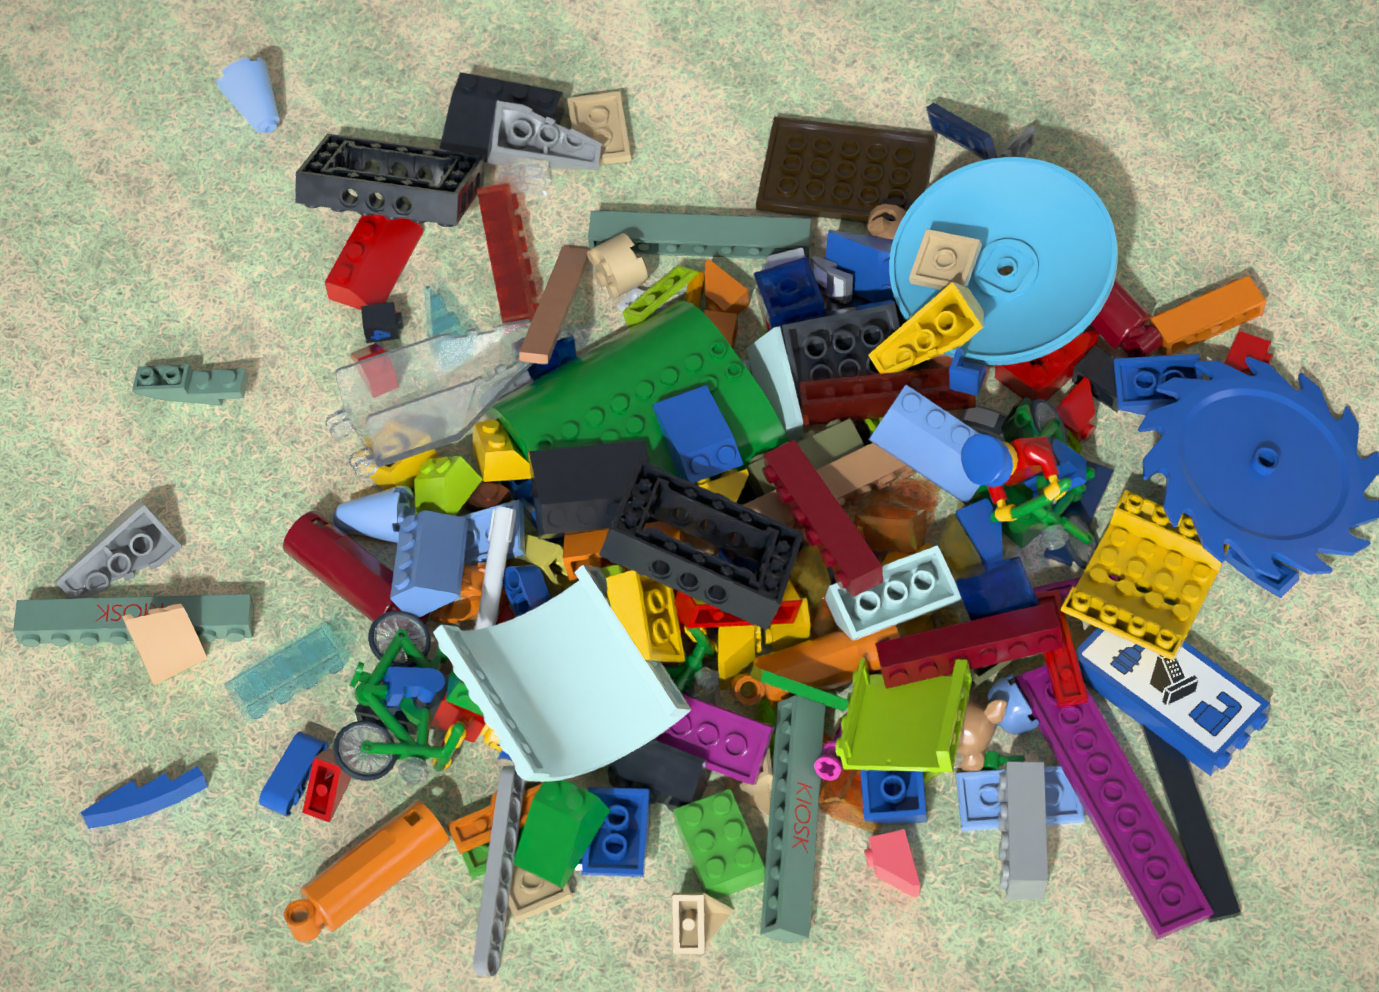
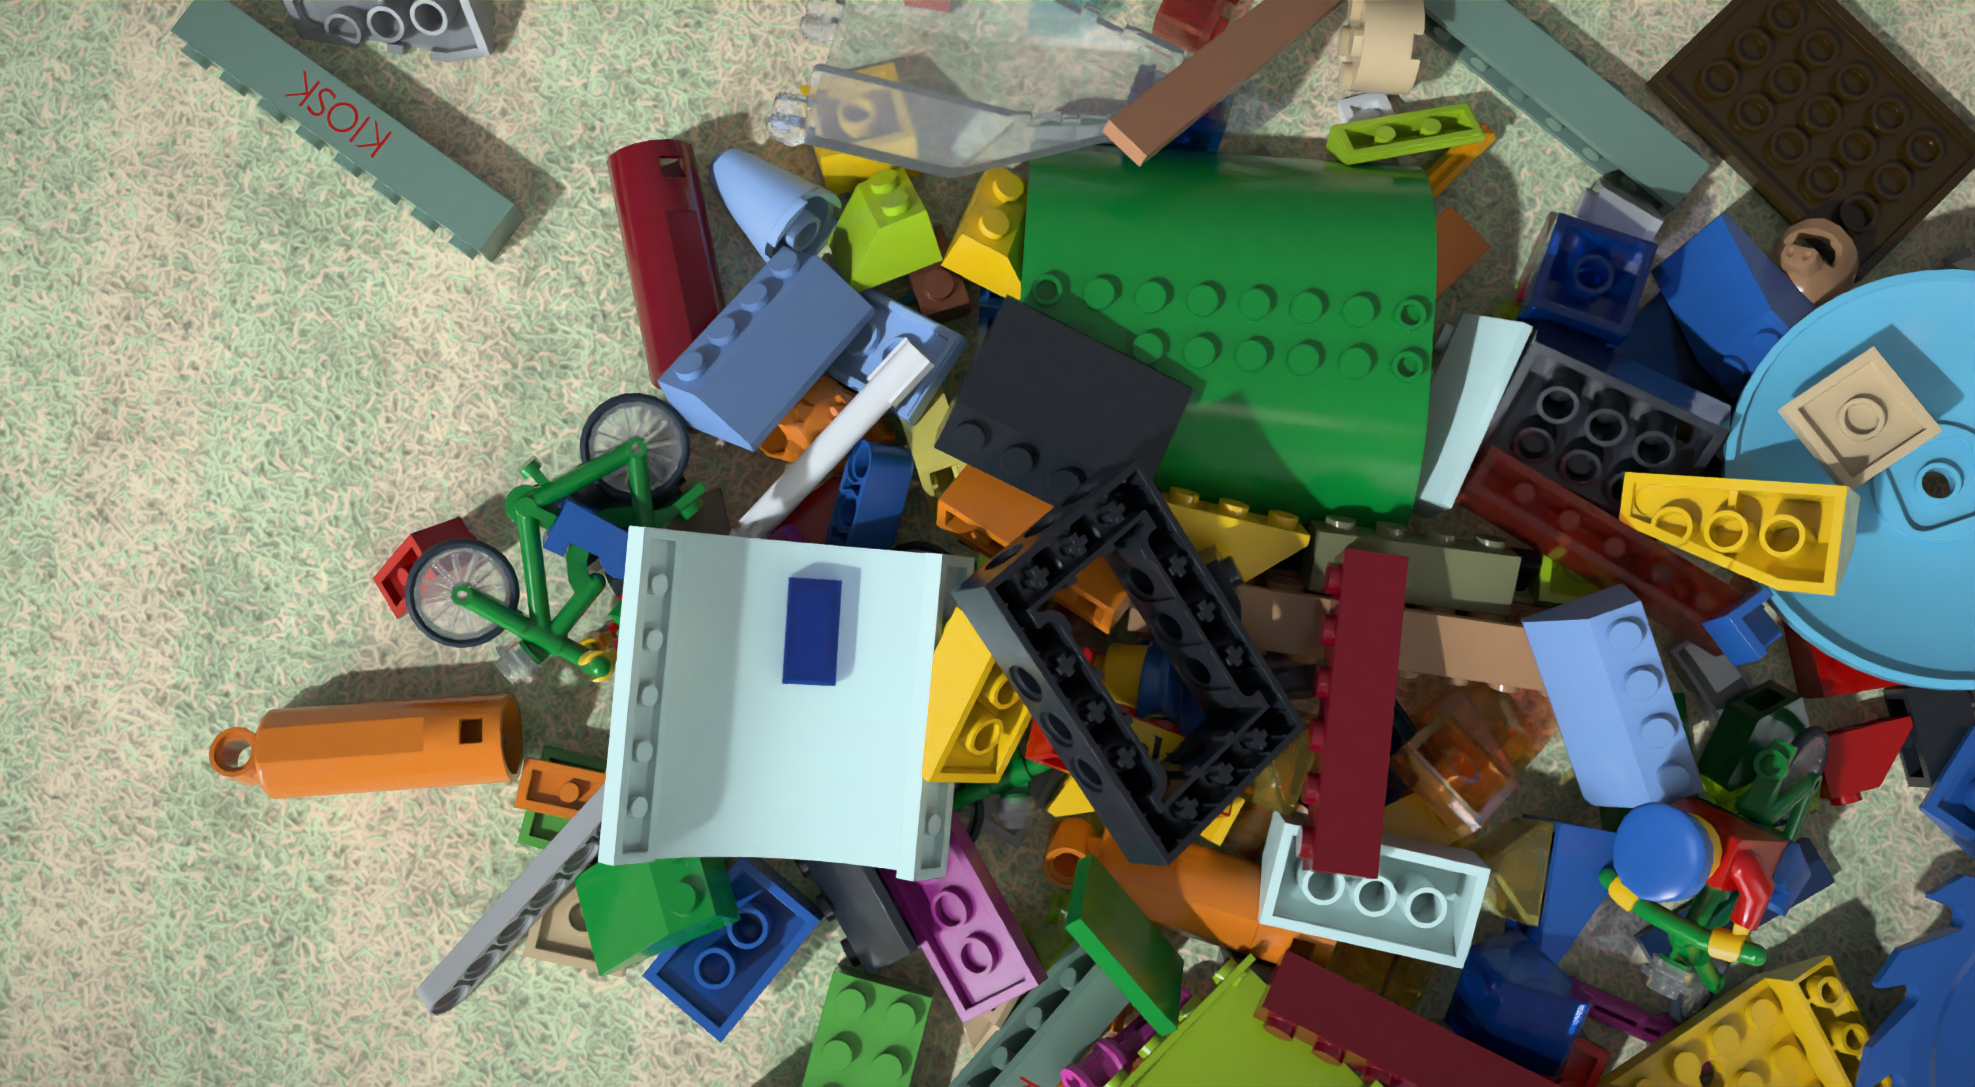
camera: 30 degrees right, 25 degrees up
(132, 803) = (169, 405): blue slope -> none
(165, 641) = (344, 196): light nougat slope -> none
(286, 673) = (487, 357): clear light blue brick -> none
(291, 774) = (392, 514): blue beam -> none
(546, 650) = (811, 631): none -> clear blue tile
(697, 435) = (1274, 439): blue slope -> none
(723, 291) = (1498, 192): orange slope -> none
(831, 281) = (1666, 295): slope -> none

